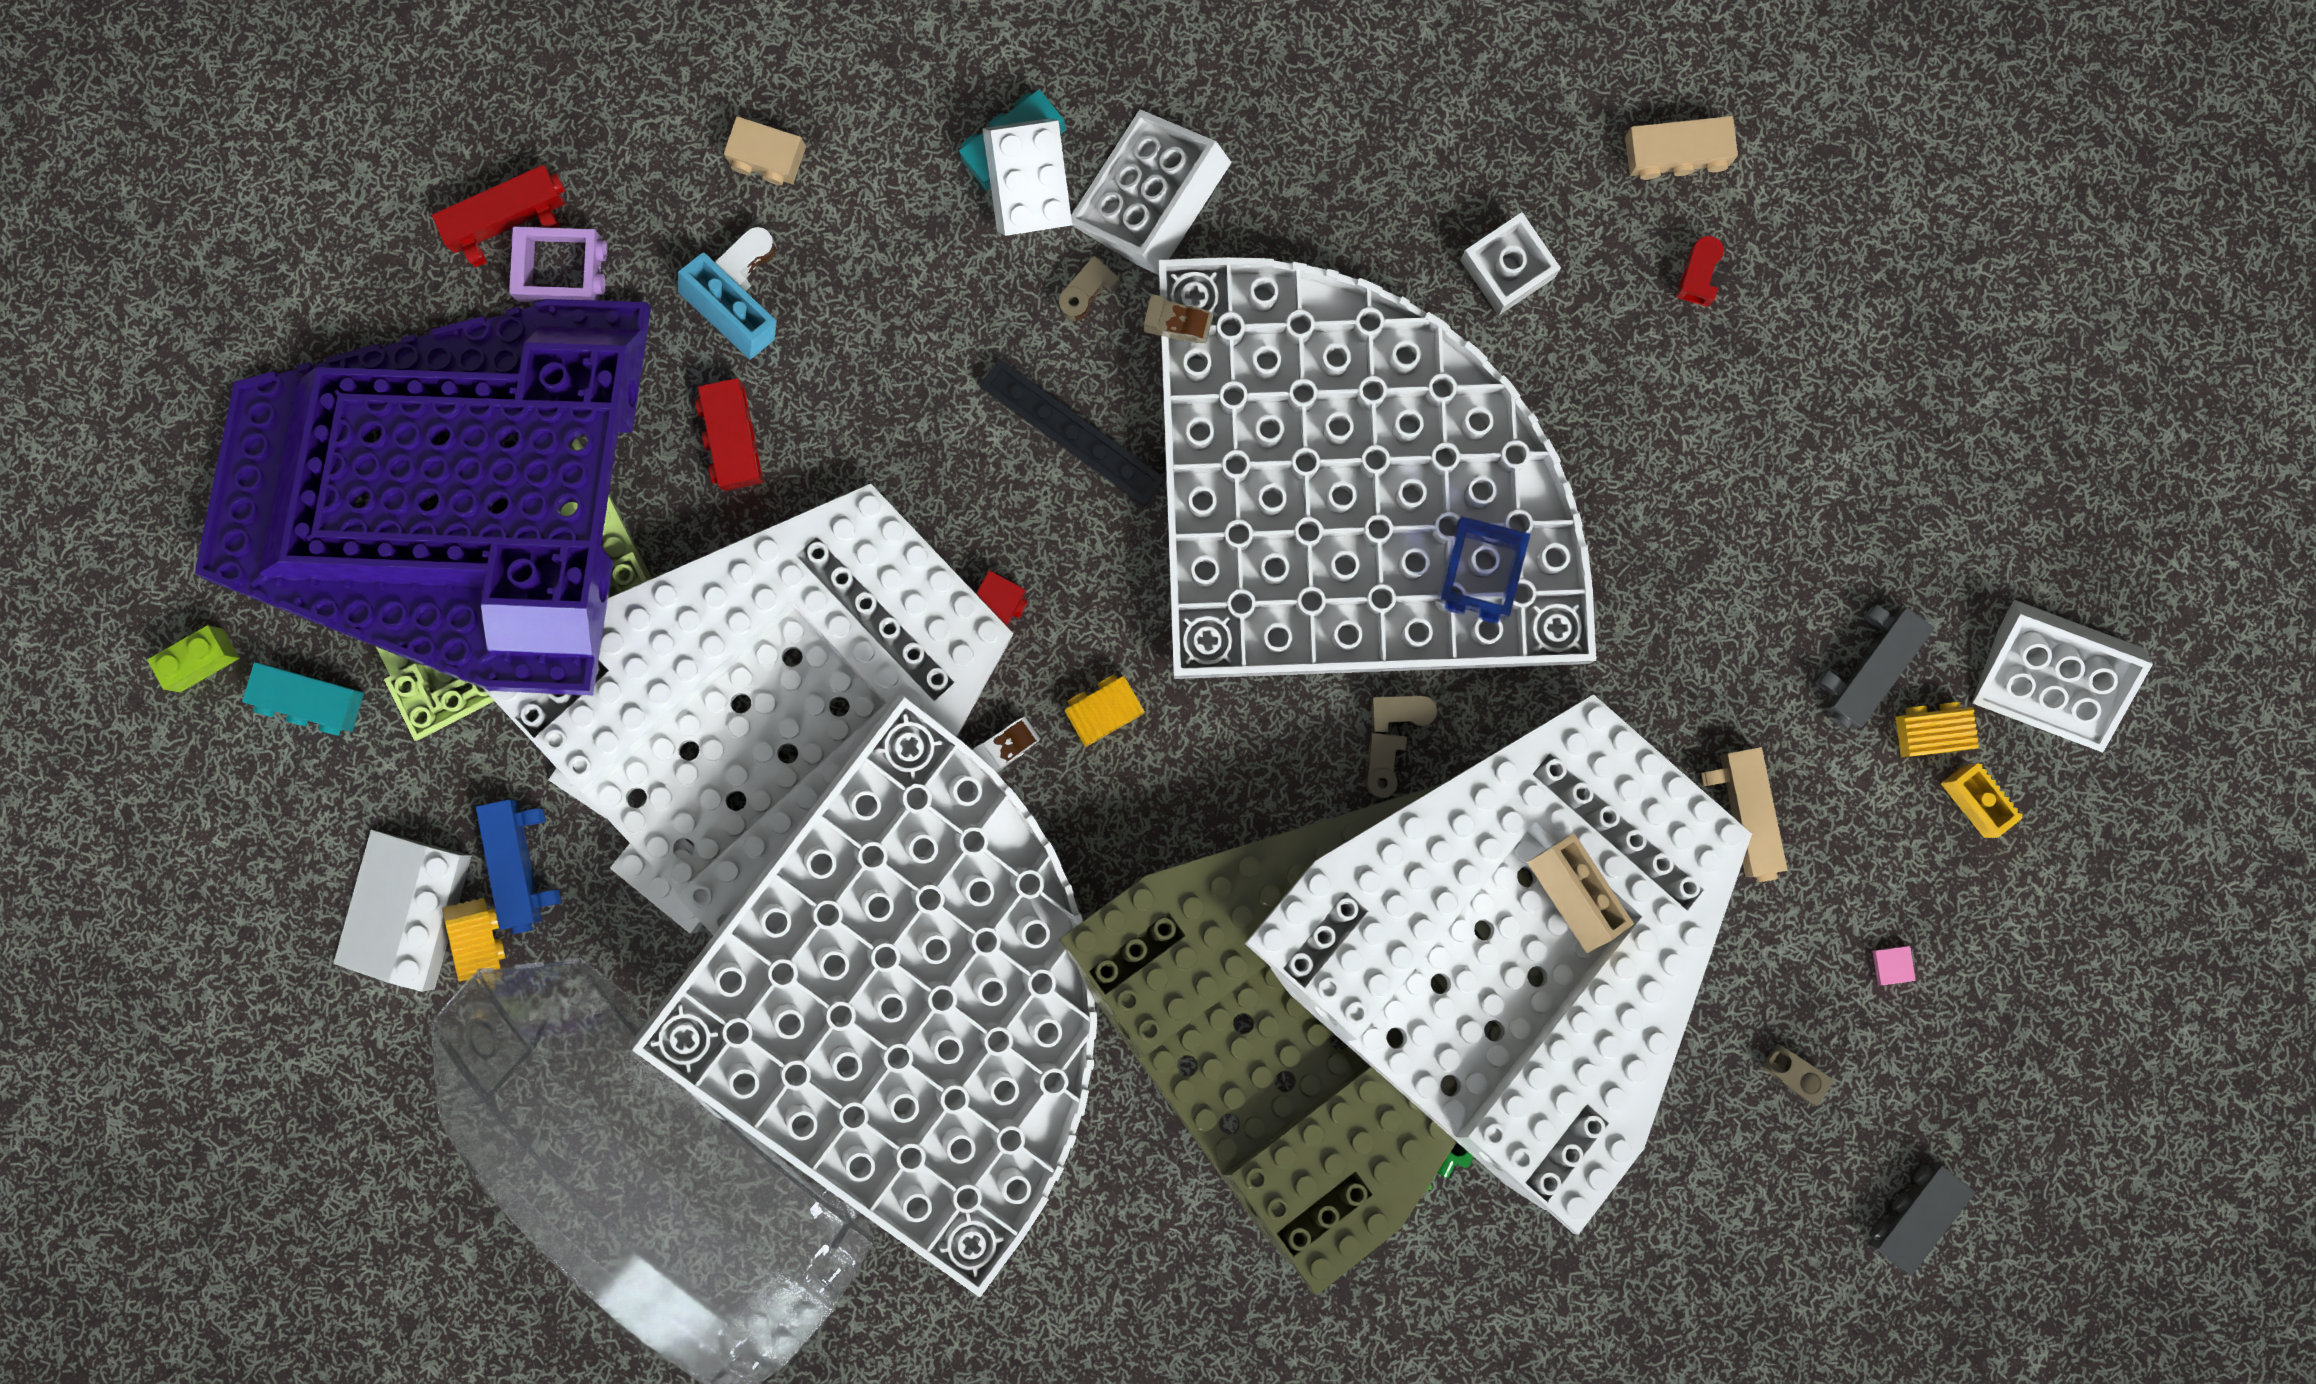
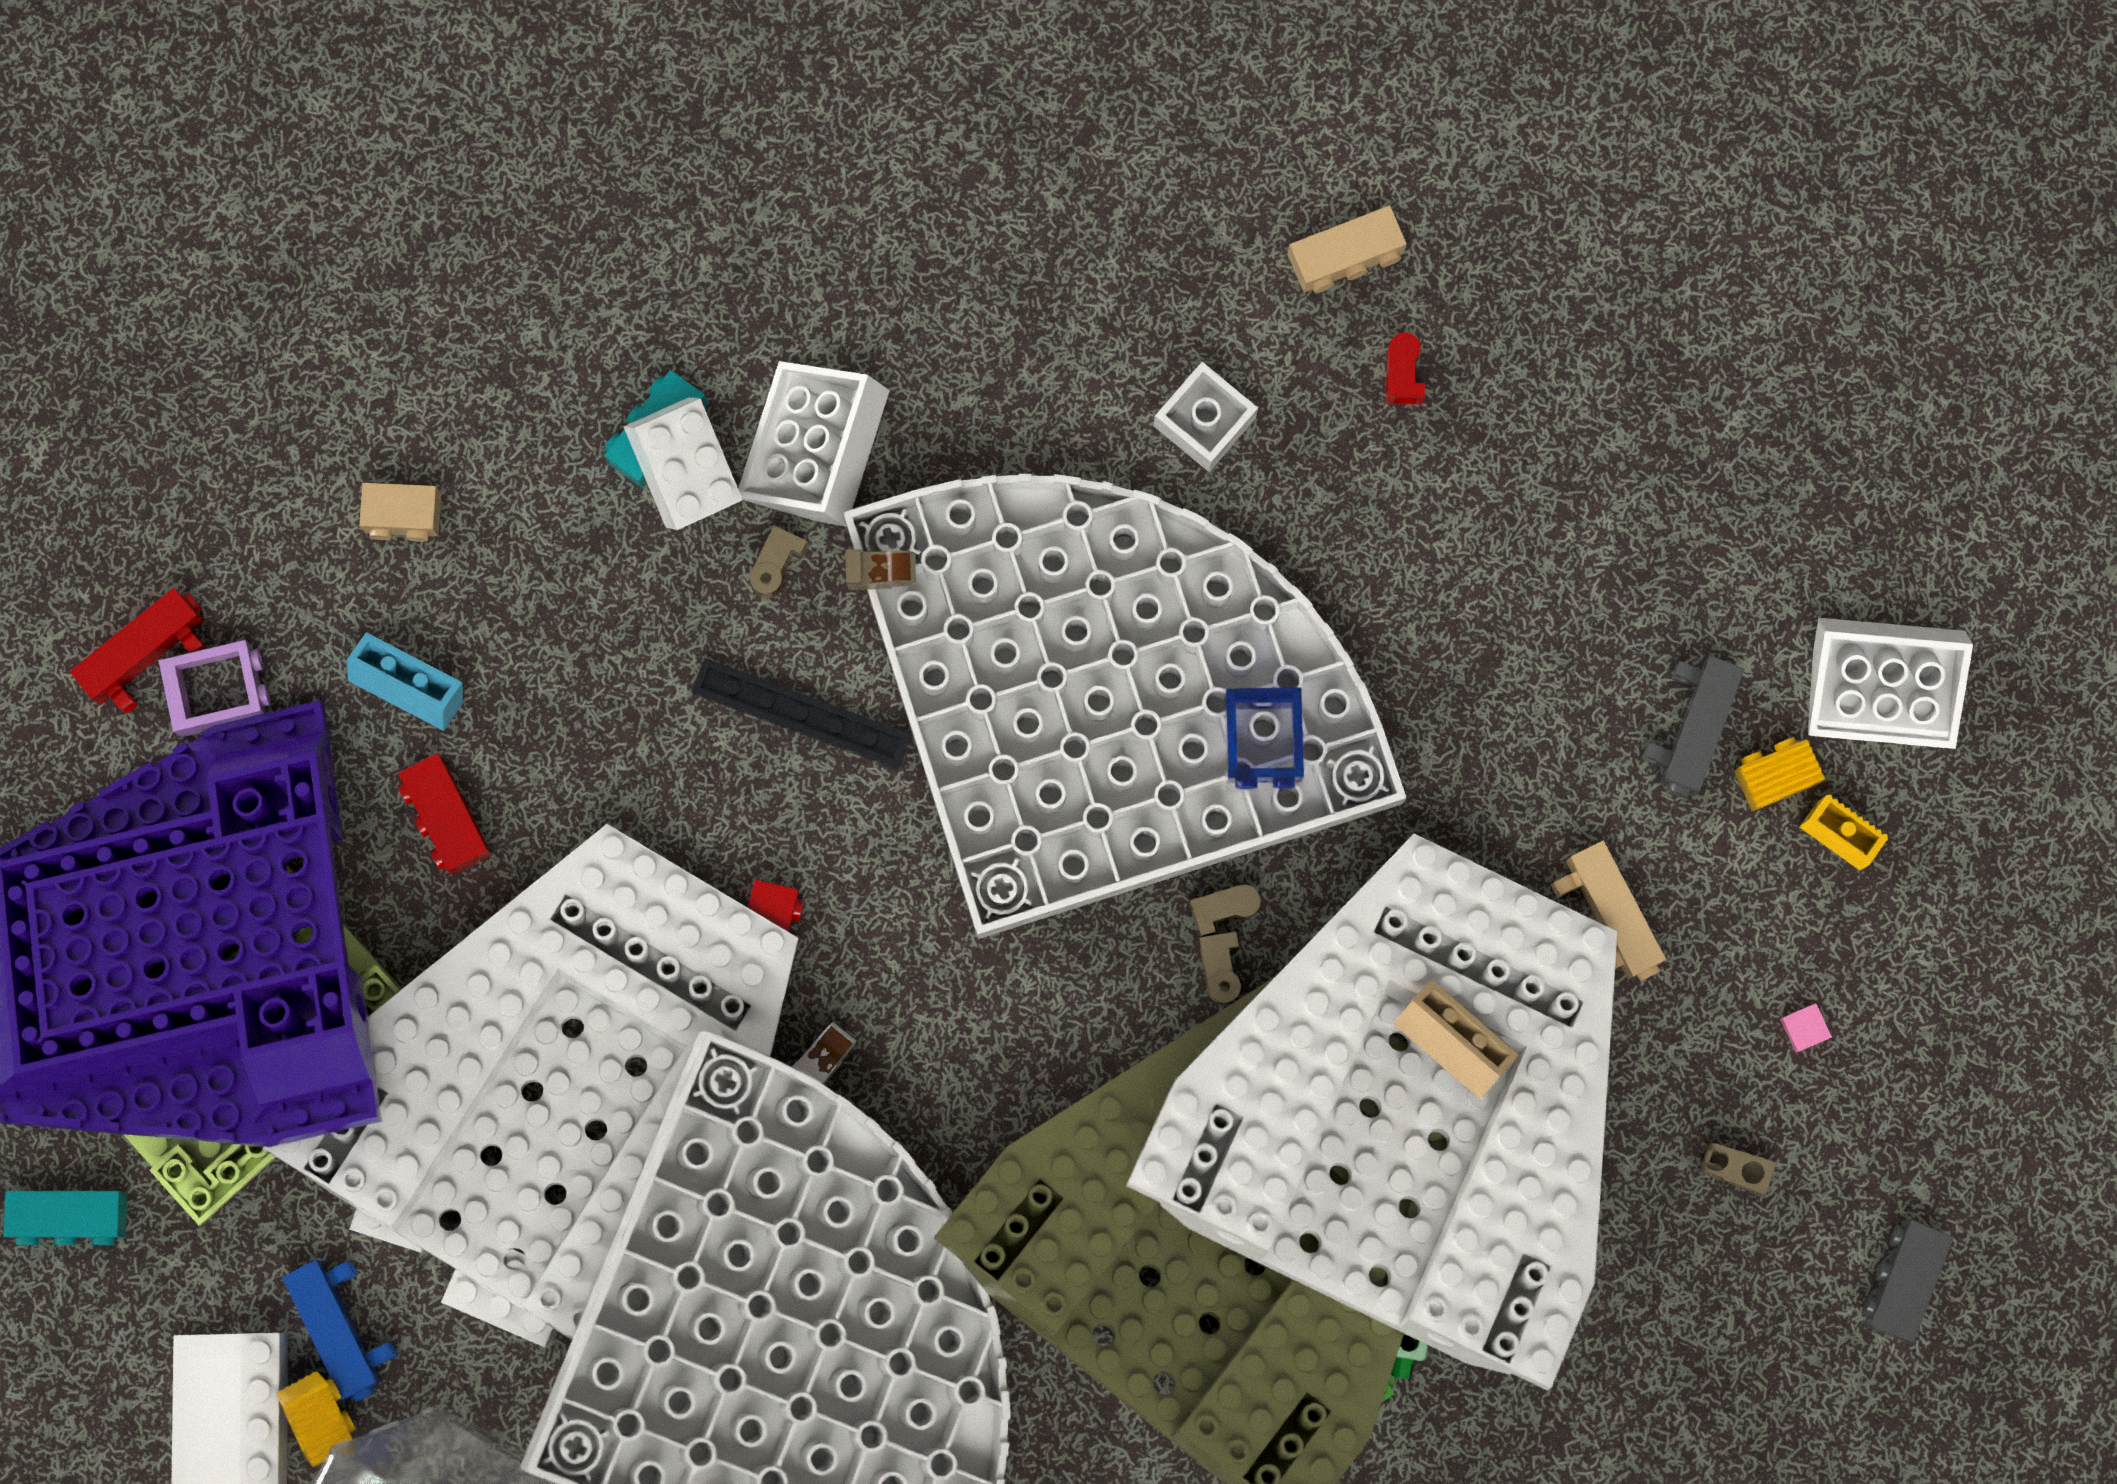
camera: 20 degrees left, 5 degrees down
(747, 254) = (411, 620): white leg -> none
(1104, 710) = (914, 992): yellow brick -> none

